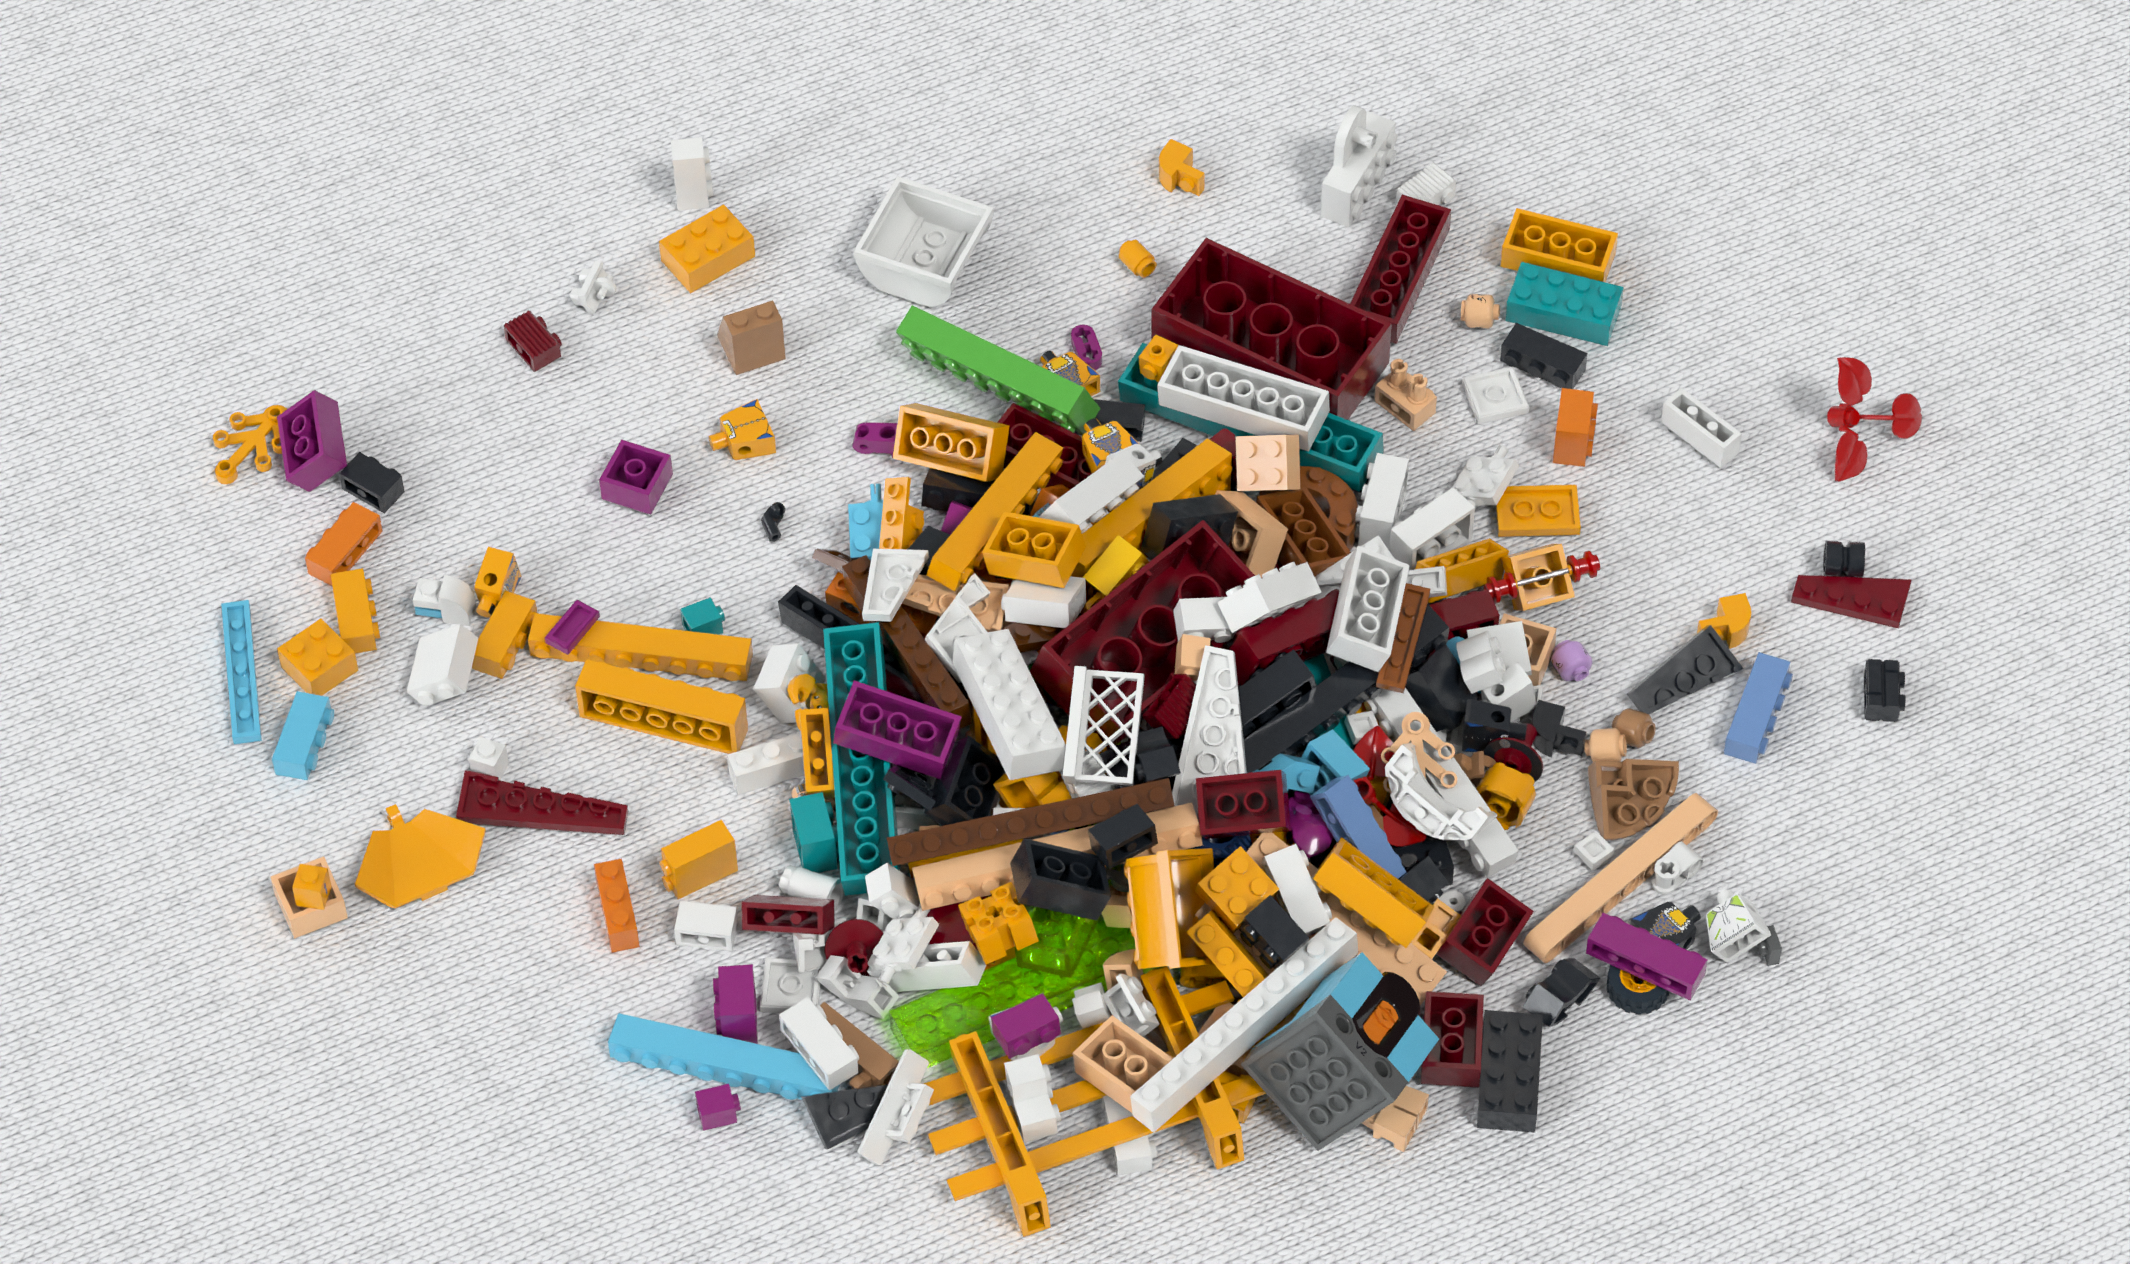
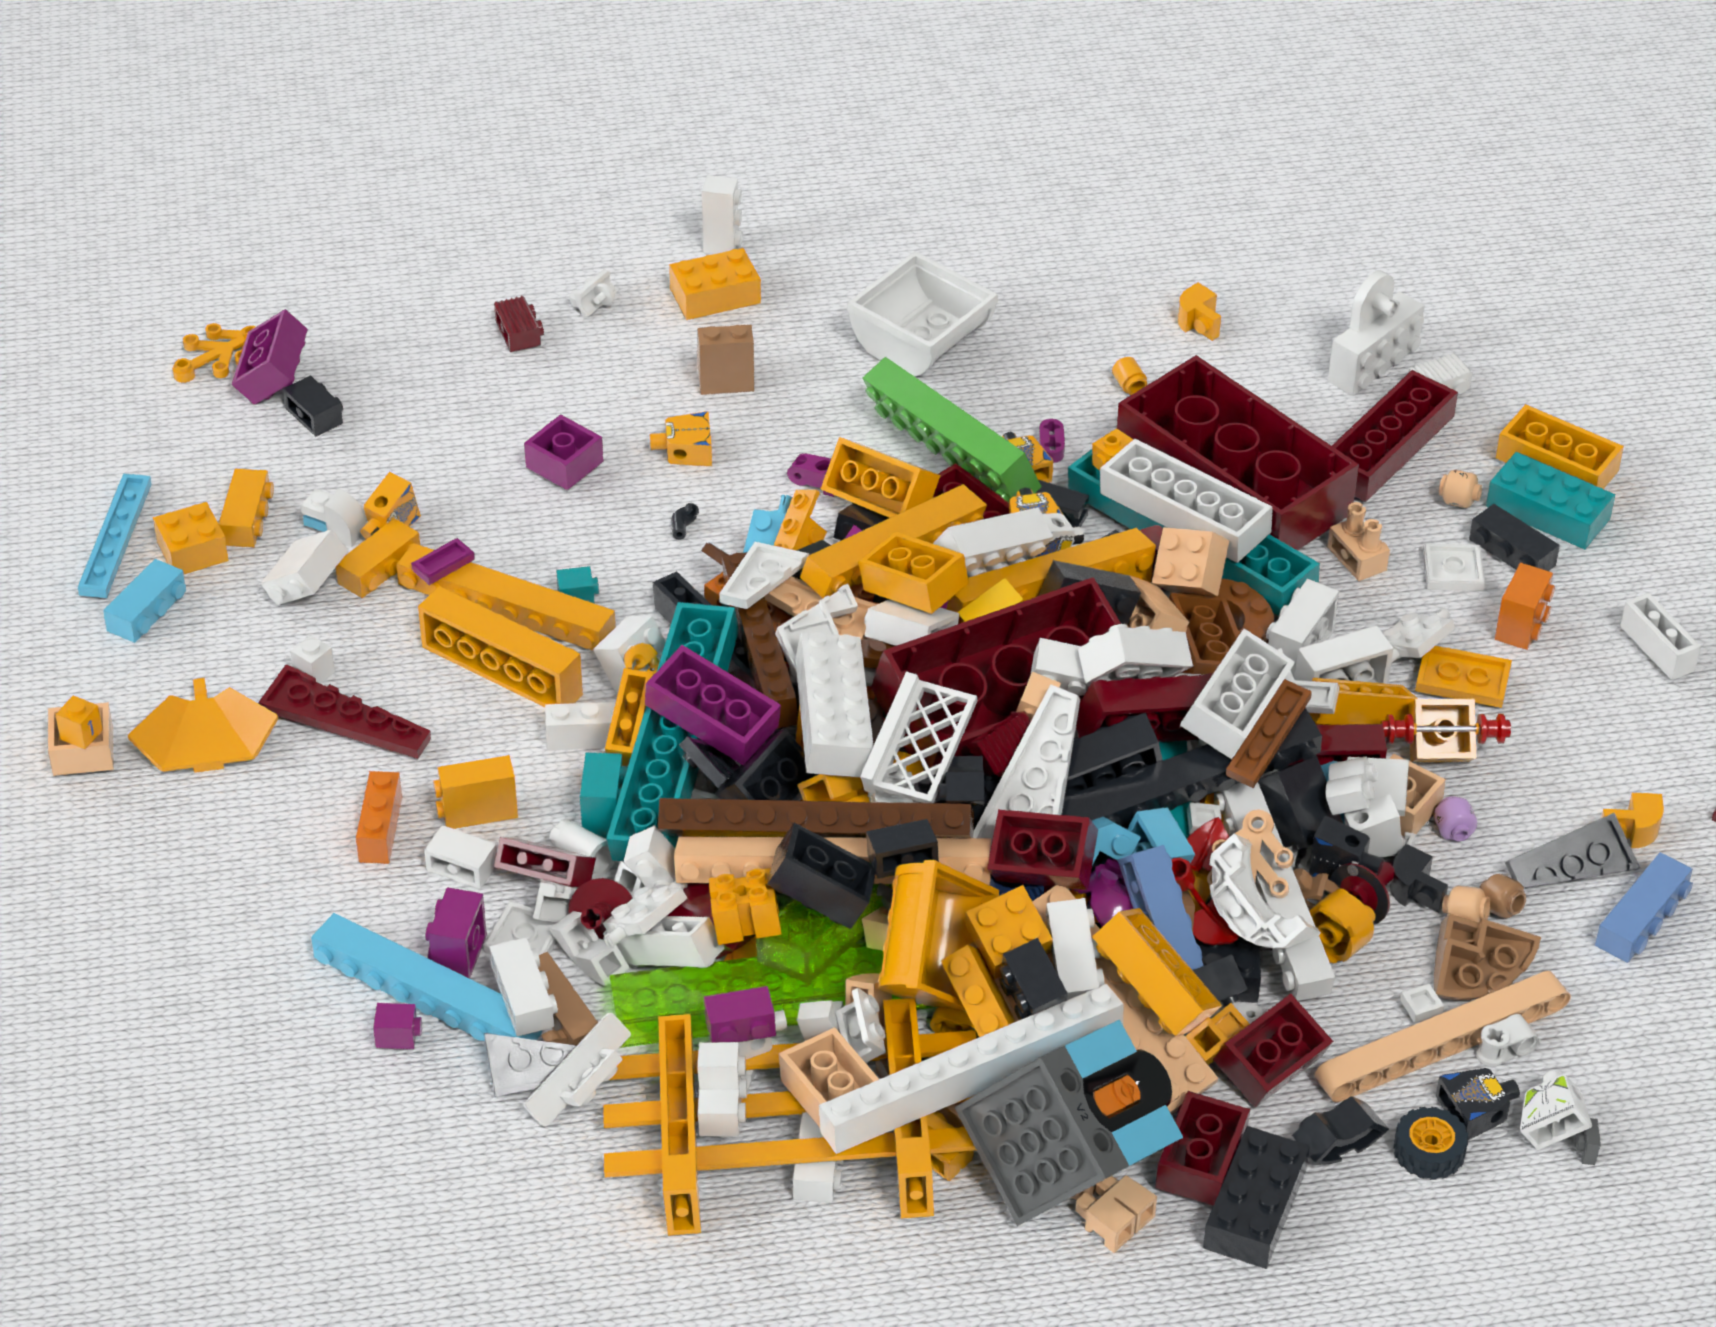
camera: 15 degrees right, 10 degrees down
(343, 542) = (264, 447): orange brick -> none
(1646, 956) = (1444, 1113): magenta brick -> none

